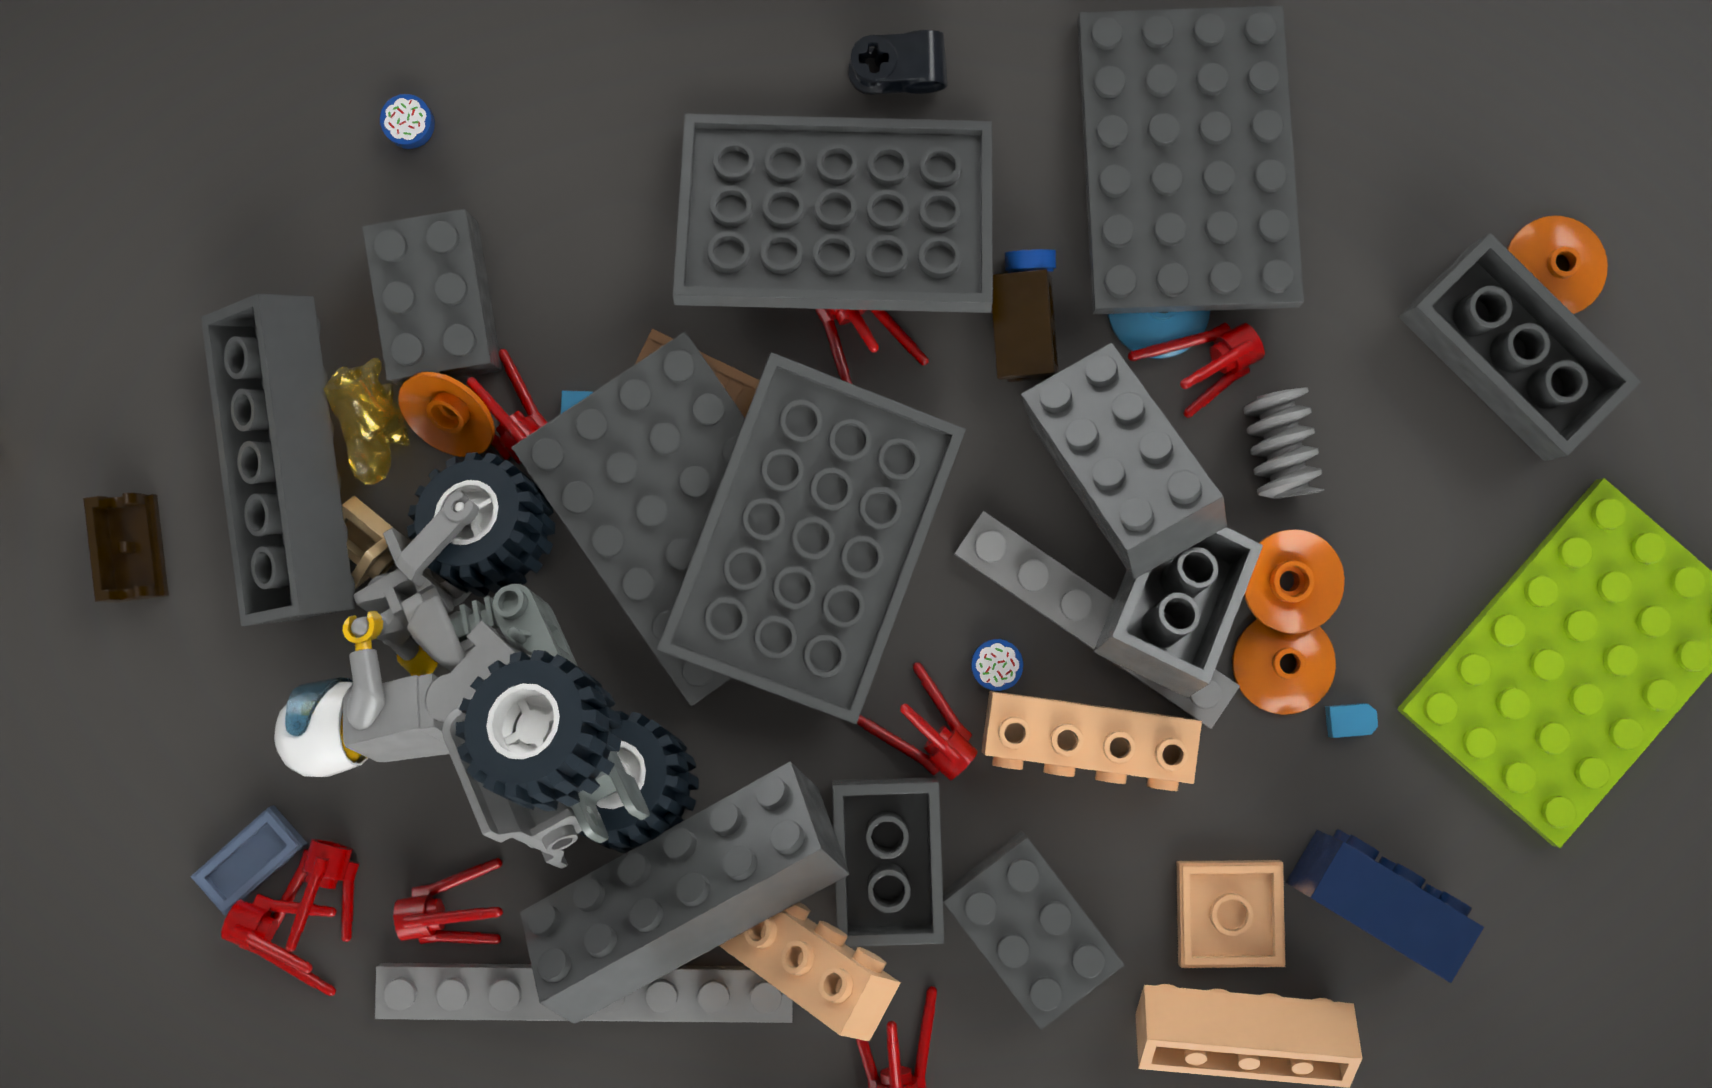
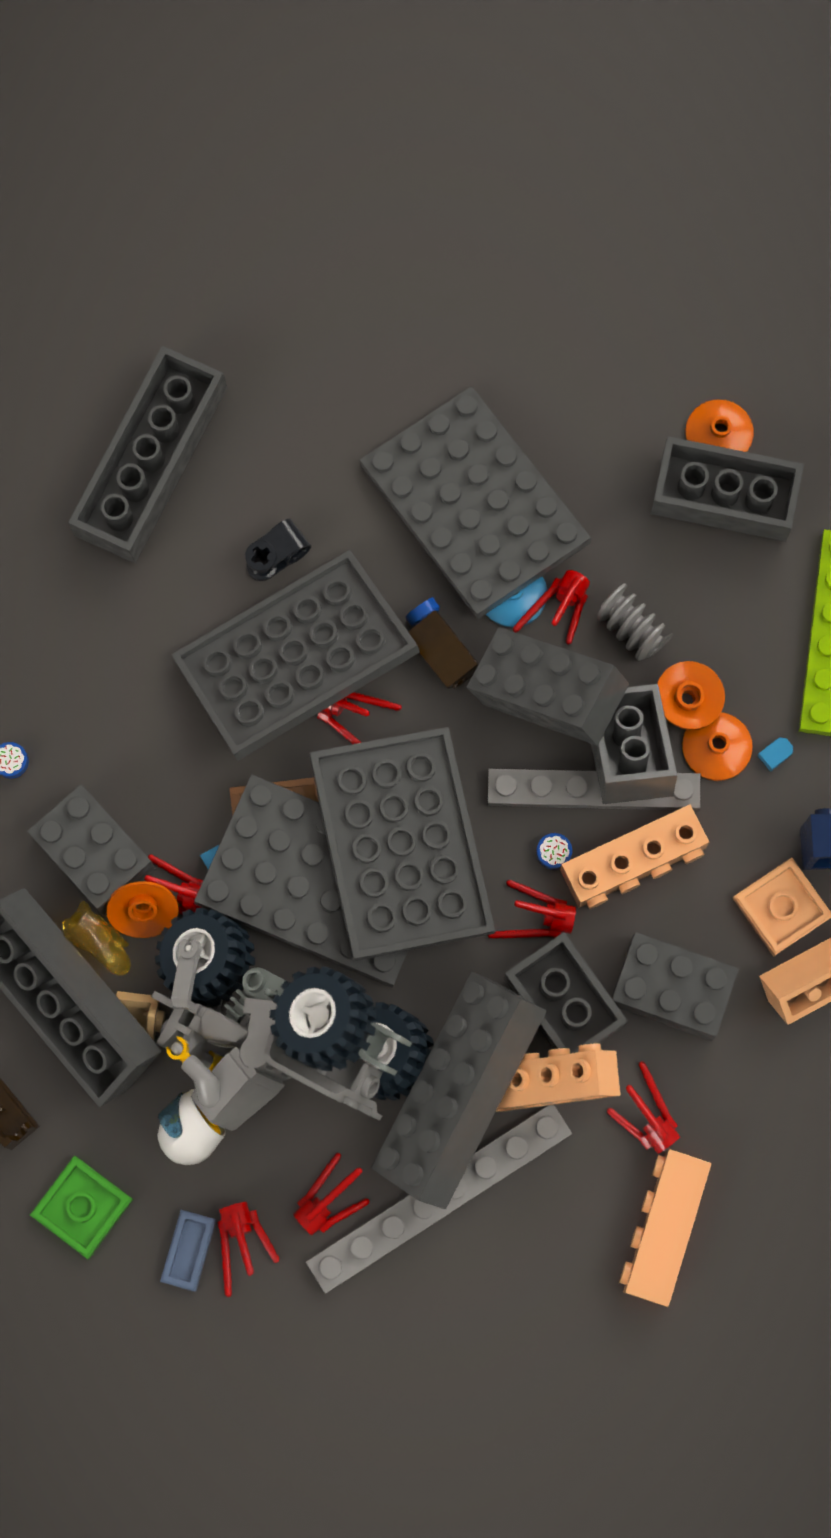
camera: 30 degrees left, 10 degrees down
(155, 726) = (81, 1207): none -> bright green tile
(254, 929) = (218, 1285): red plant -> none

